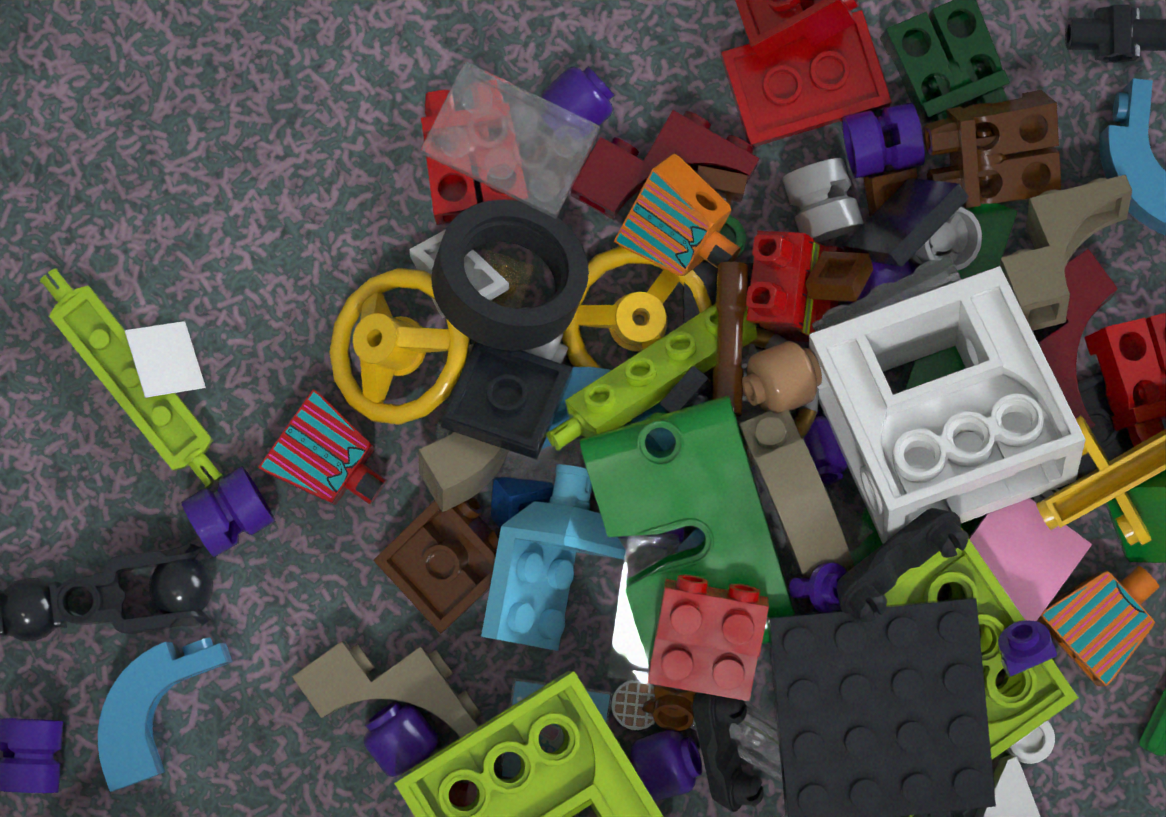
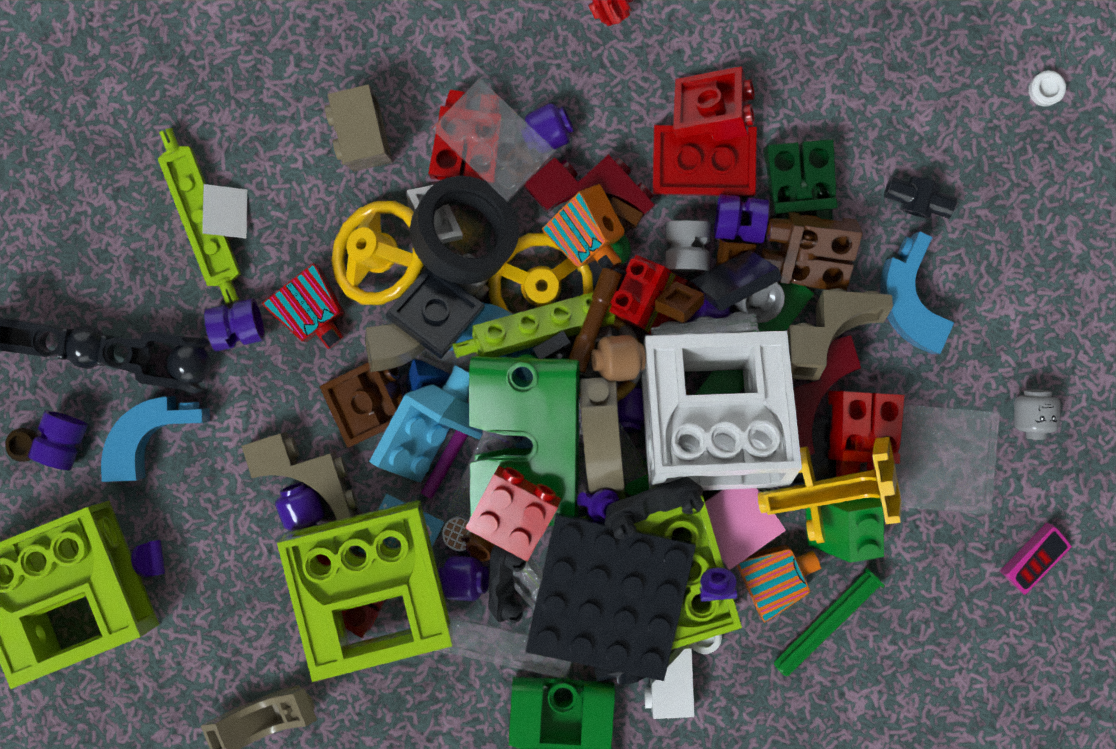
camera: 25 degrees right, 5 degrees up
(326, 193) = (359, 128): none -> dark tan brick
(583, 611) = (444, 464): none -> magenta bar

